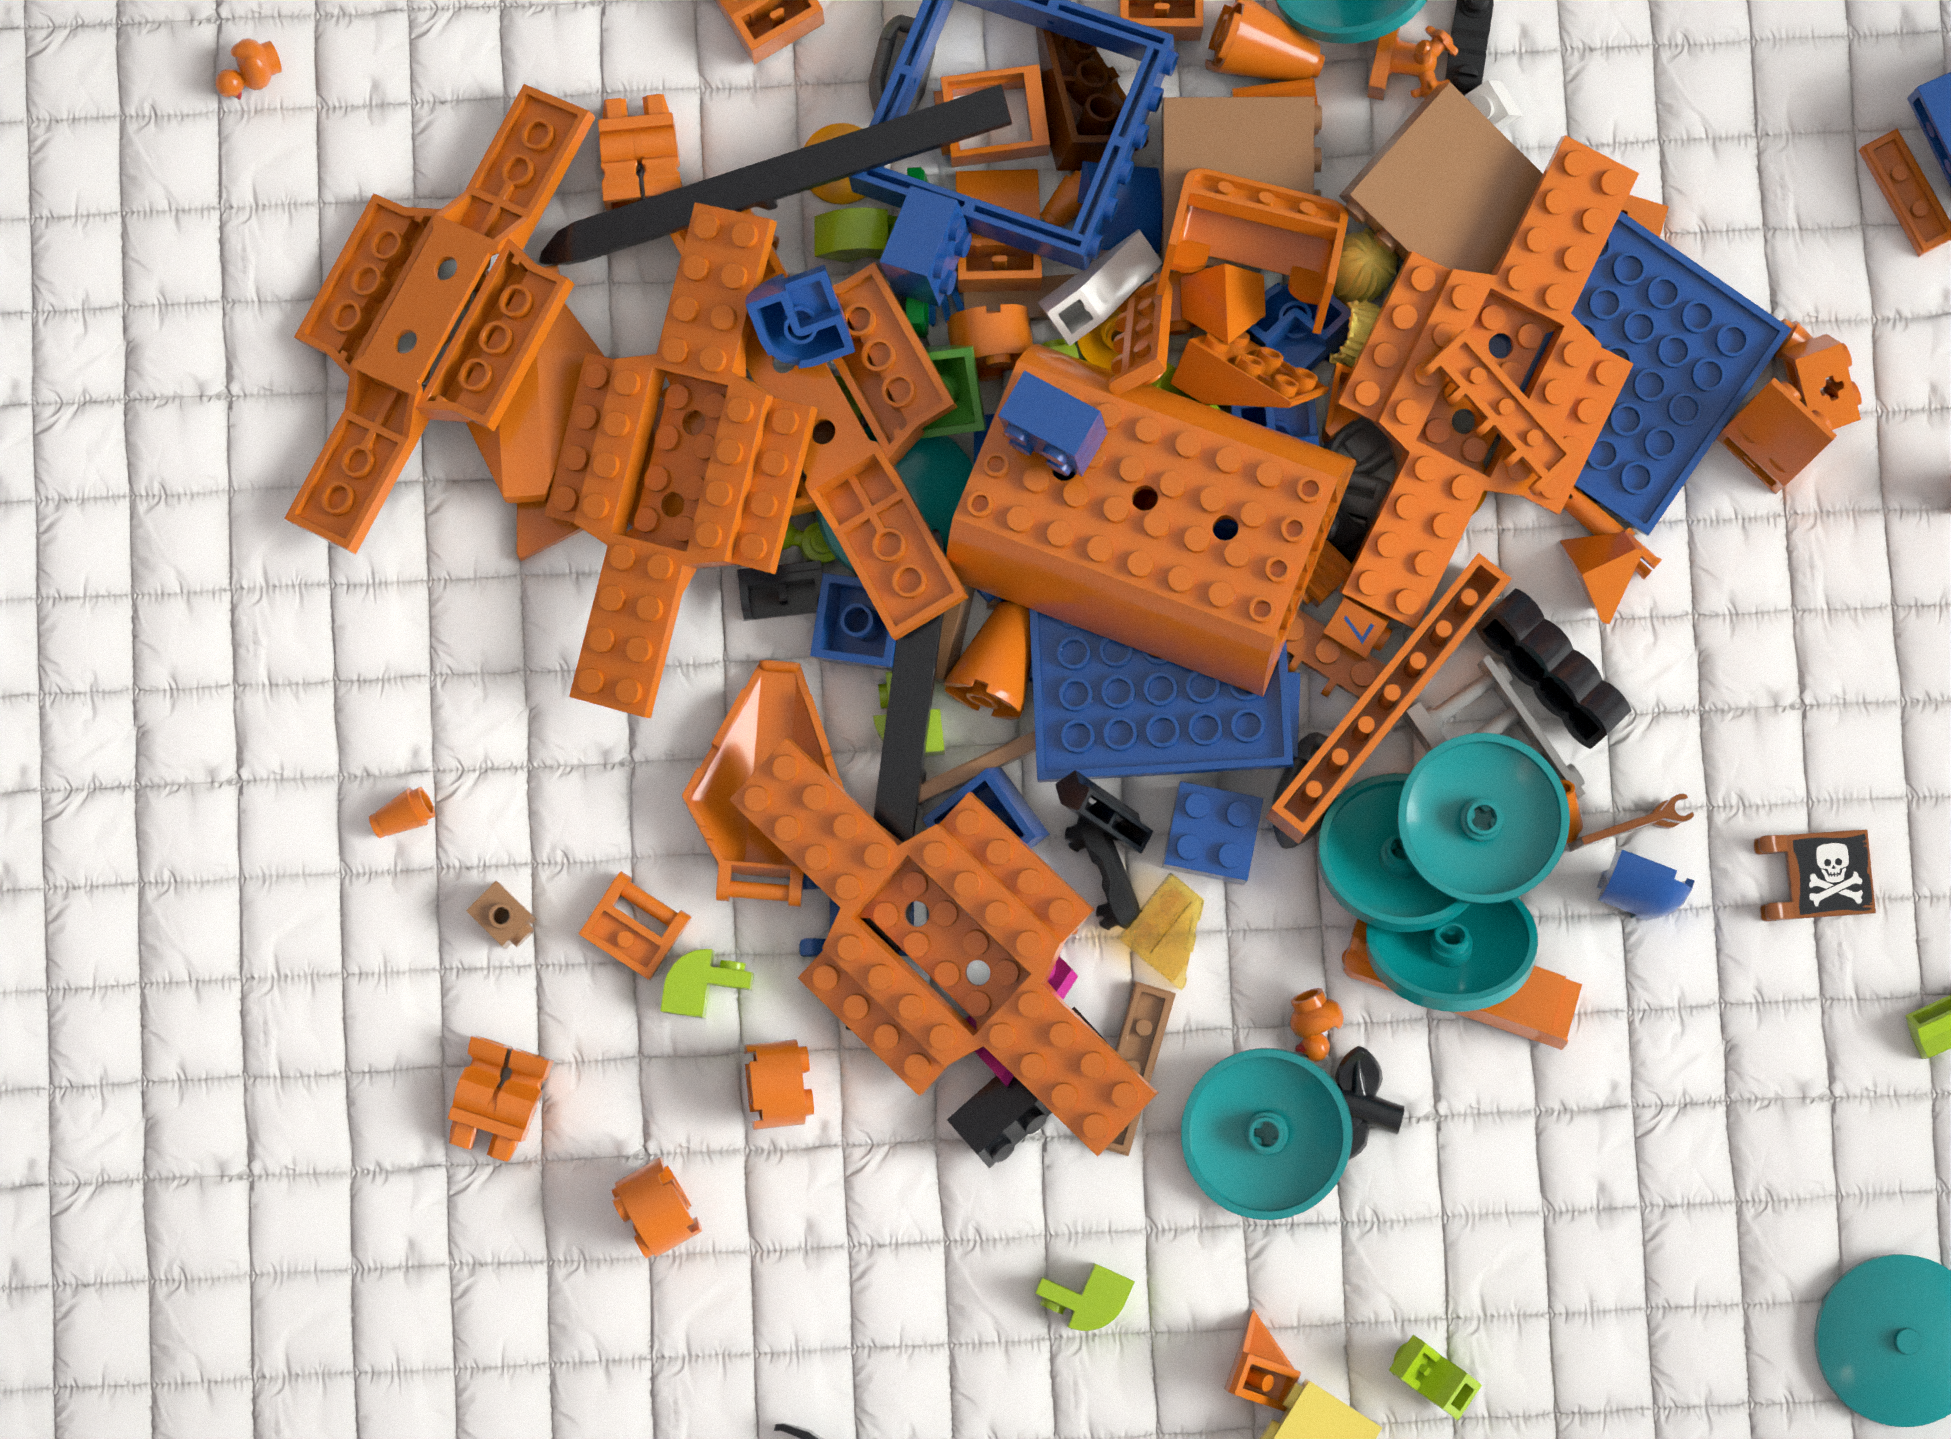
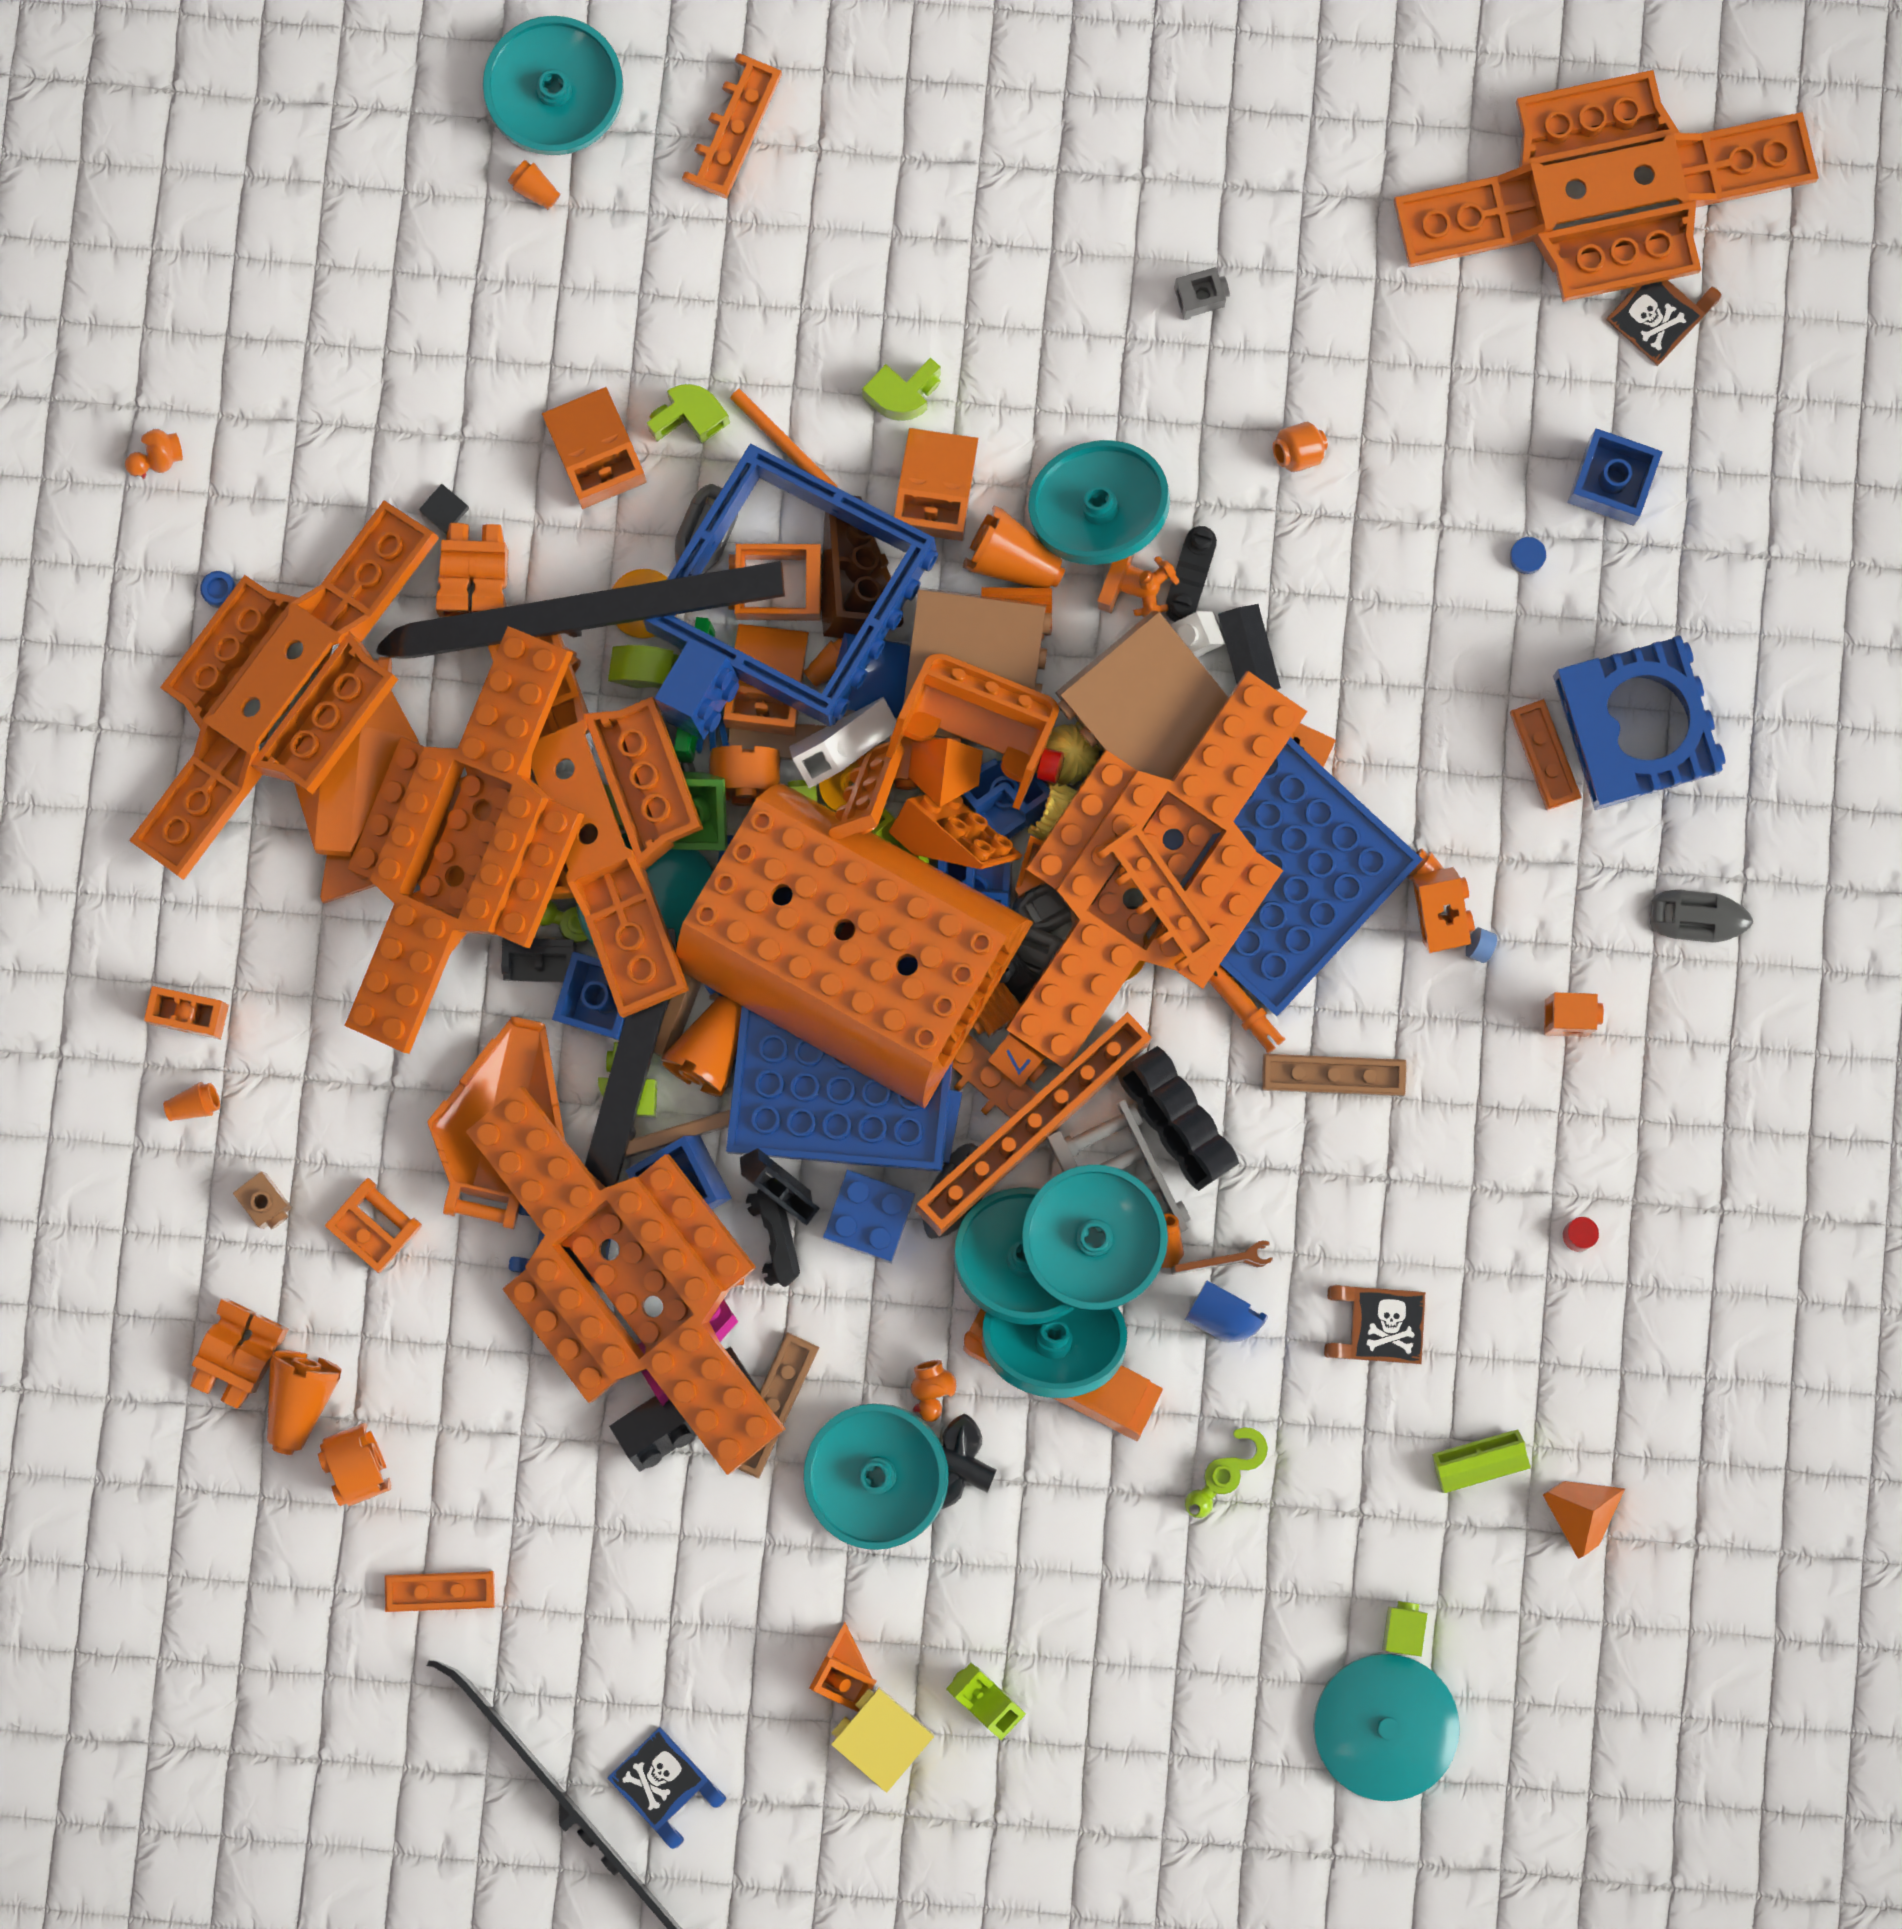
camera: 10 degrees right, 0 degrees up
(343, 213) = (216, 588): none -> blue tile
(380, 709) = (186, 1012): none -> orange brick
(576, 1139) = (297, 1397): none -> orange cone
(593, 85) = (443, 508): none -> black tile
(690, 980) = (412, 1278): lime brick -> none
(775, 1341) = (439, 1591): none -> orange tile
(777, 1084) = (471, 1375): orange brick -> none
(800, 318) = (580, 737): blue brick -> none
(1052, 424) = (774, 858): blue brick -> none
(1098, 1303) = (712, 1599): lime brick -> none
(1166, 929) = (819, 1292): clear yellow wing -> none
(1347, 280) = (1050, 765): none -> red piece
(1546, 109) = (1248, 644): none -> black piece
(1604, 568) = (1233, 1039): orange slope -> none
(1669, 1073) = (1224, 1475): none -> lime piece
(1722, 594) = (1333, 1075): none -> medium nougat tile
(1776, 434) = (1394, 947): orange slope -> none
(1873, 421) = (1482, 945): none -> medium blue piece
(1906, 1223) = (1405, 1629): none -> lime brick

